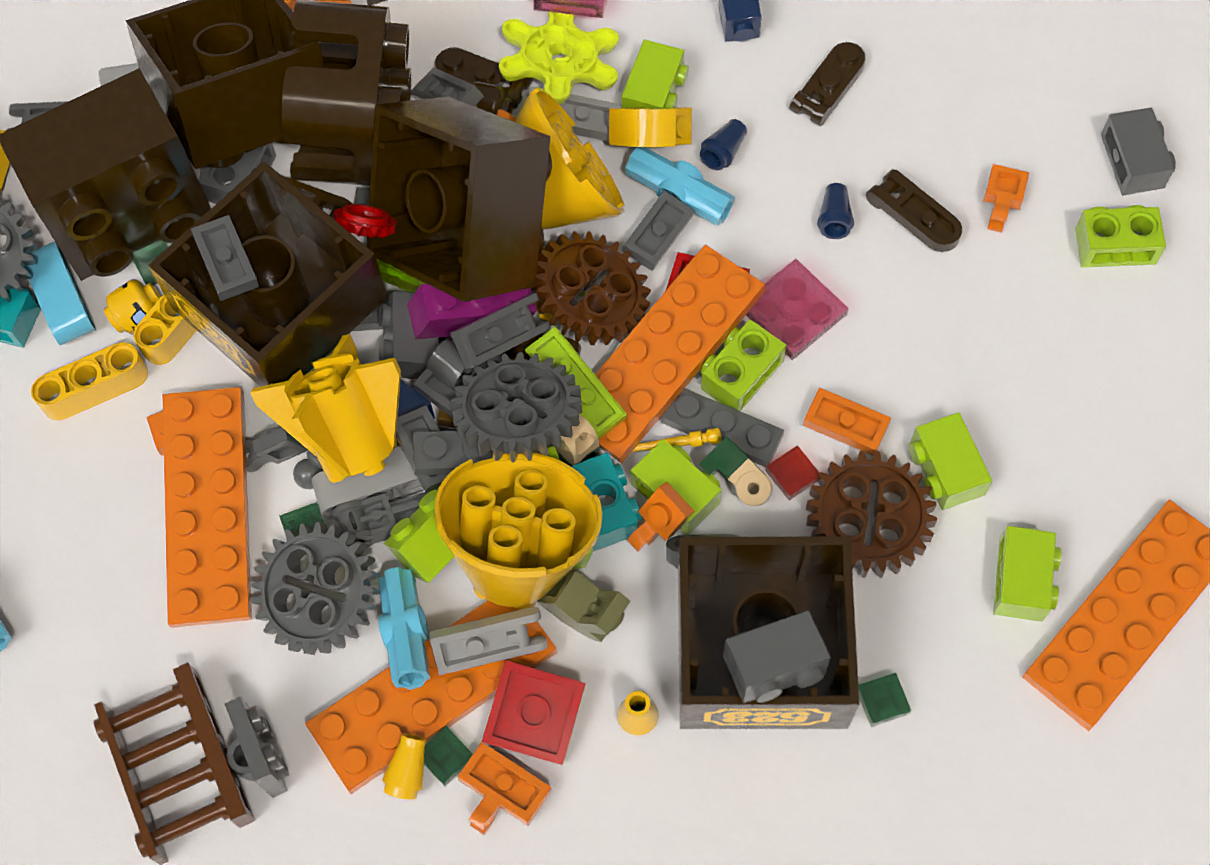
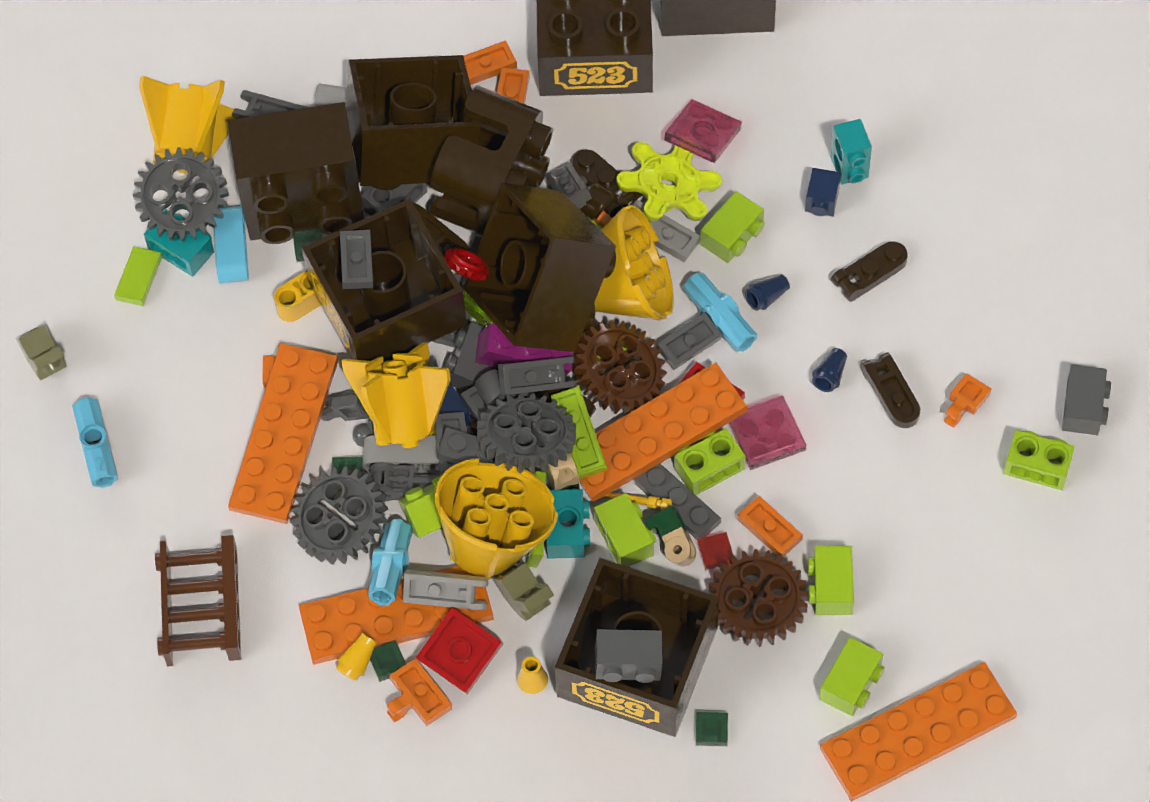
camera: 20 degrees right, 5 degrees down
(71, 378) = (219, 310): yellow beam -> none
(130, 304) = (279, 270): yellow head -> none
(253, 735) = (260, 605): dark grey plate -> none
(650, 126) = (714, 261): yellow brick -> none
(663, 514) = (604, 544): orange plate -> none

